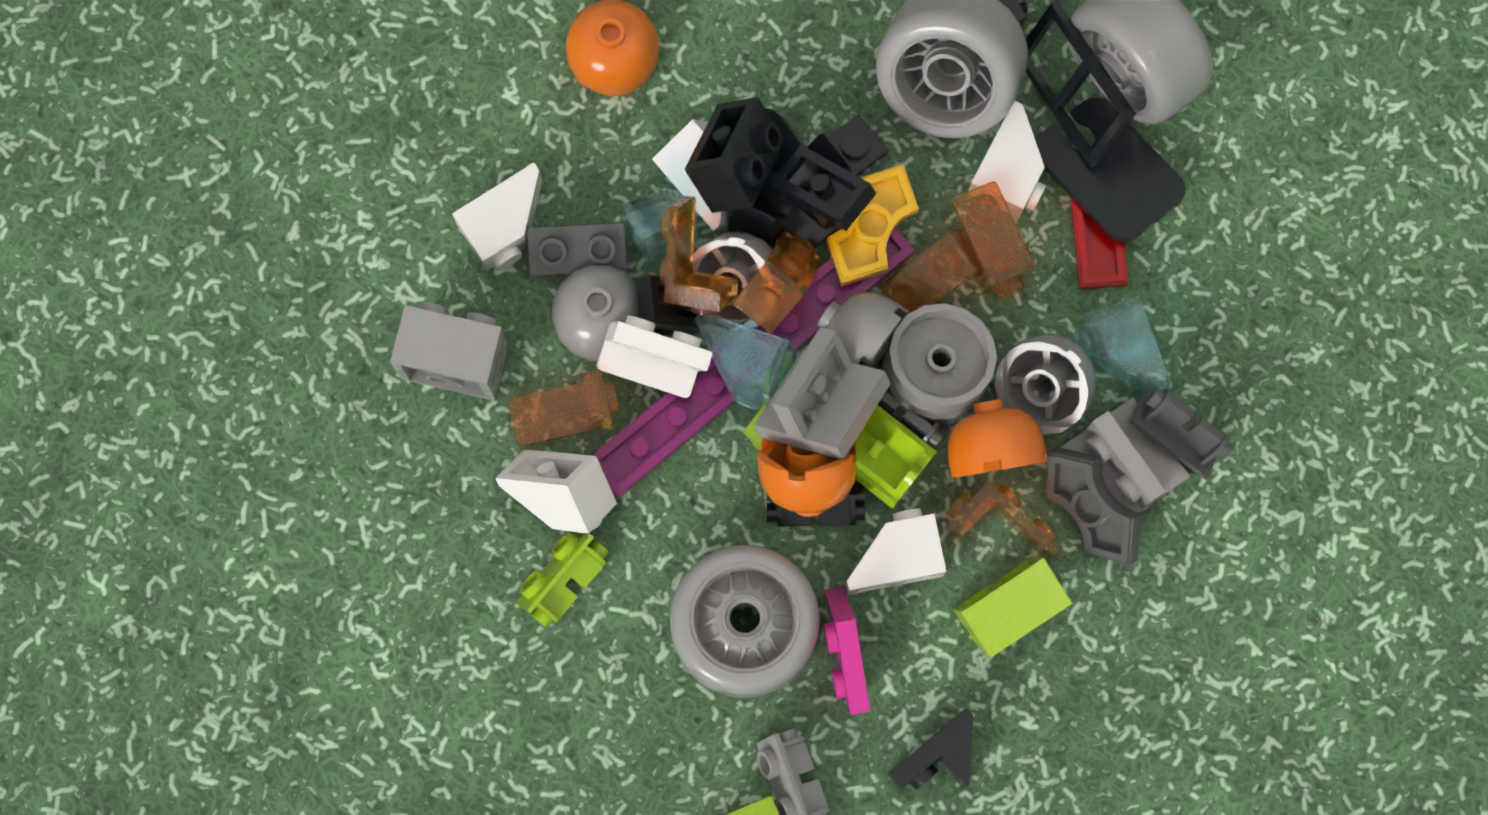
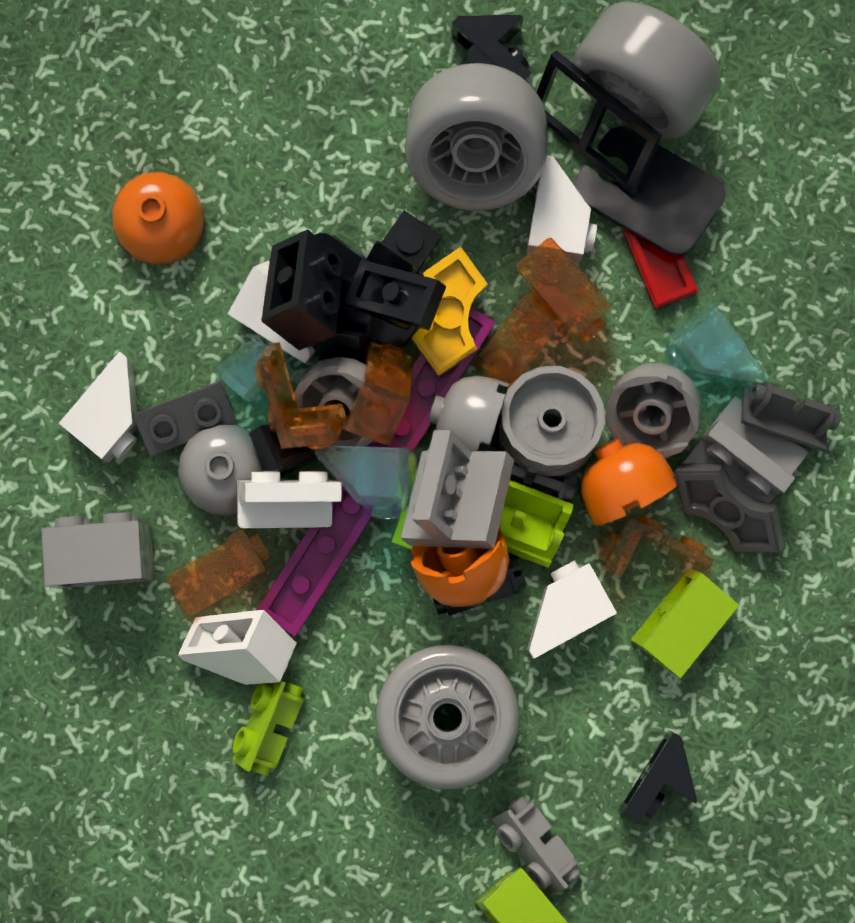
camera: 15 degrees left, 5 degrees up
(843, 639) = (543, 706): dark pink wing -> none

